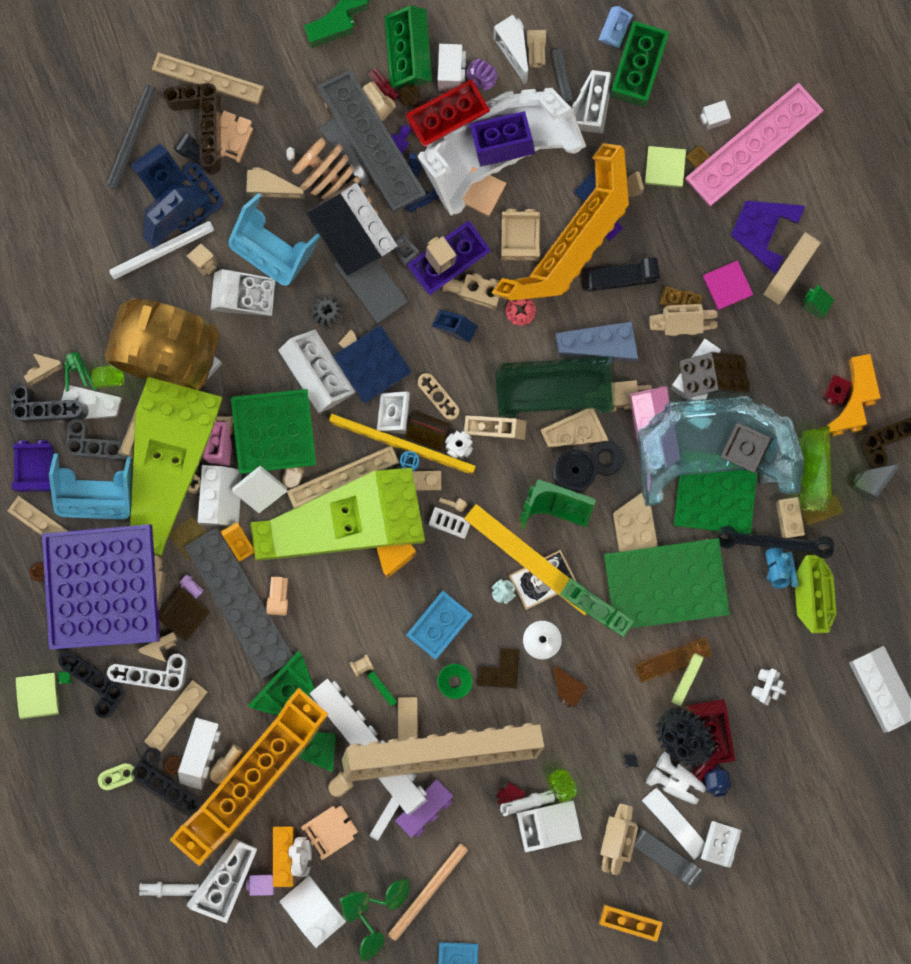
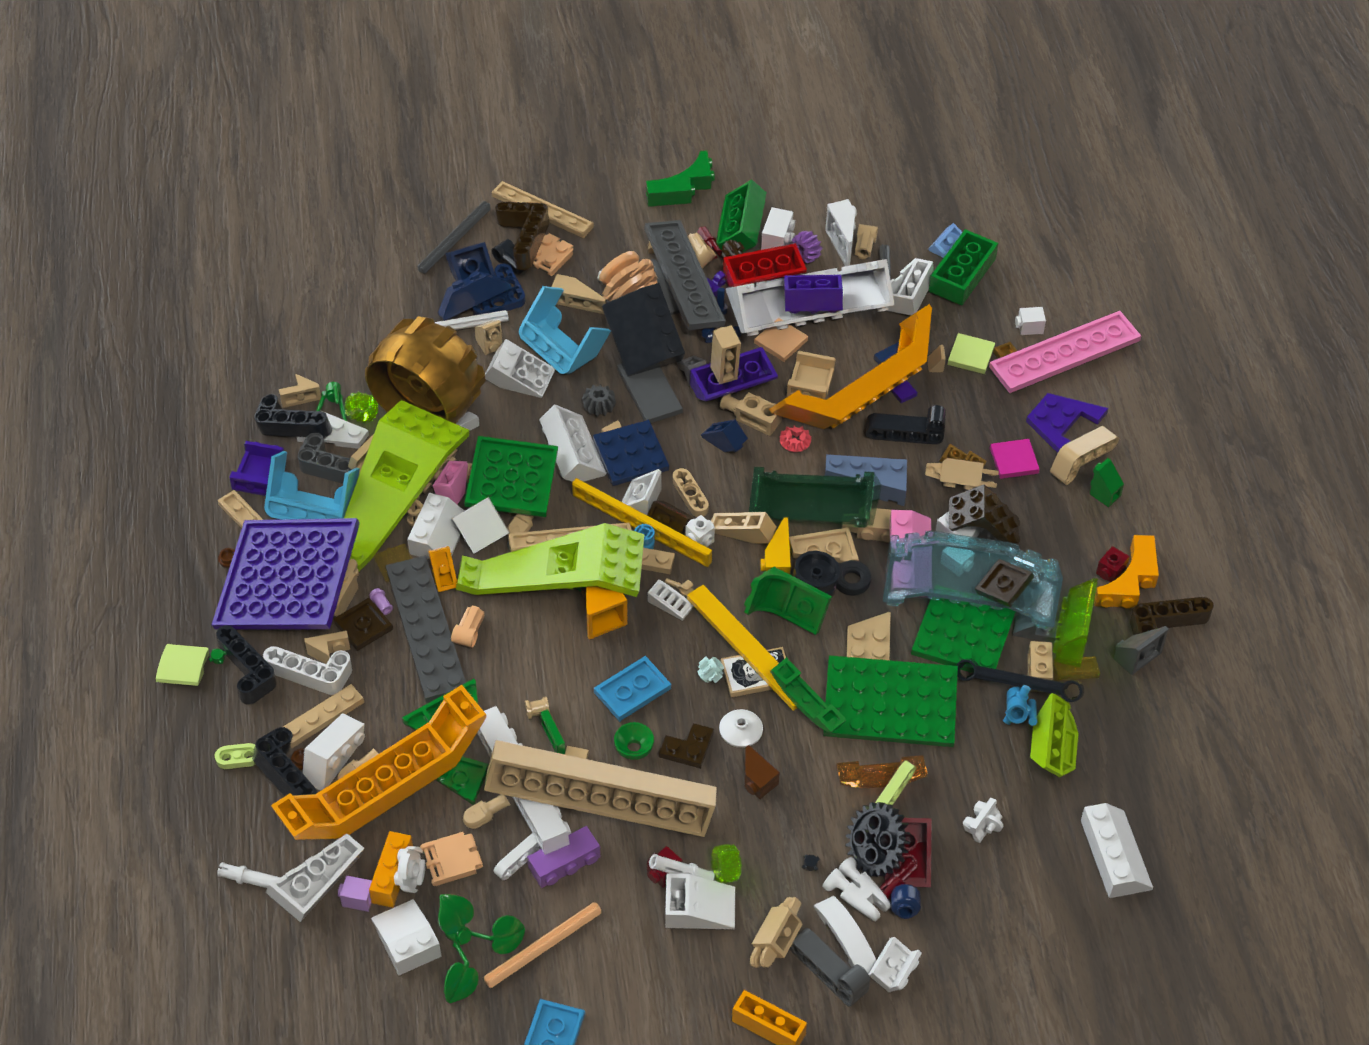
camera: 10 degrees right, 30 degrees down
(534, 455) = (778, 550): none -> yellow slope

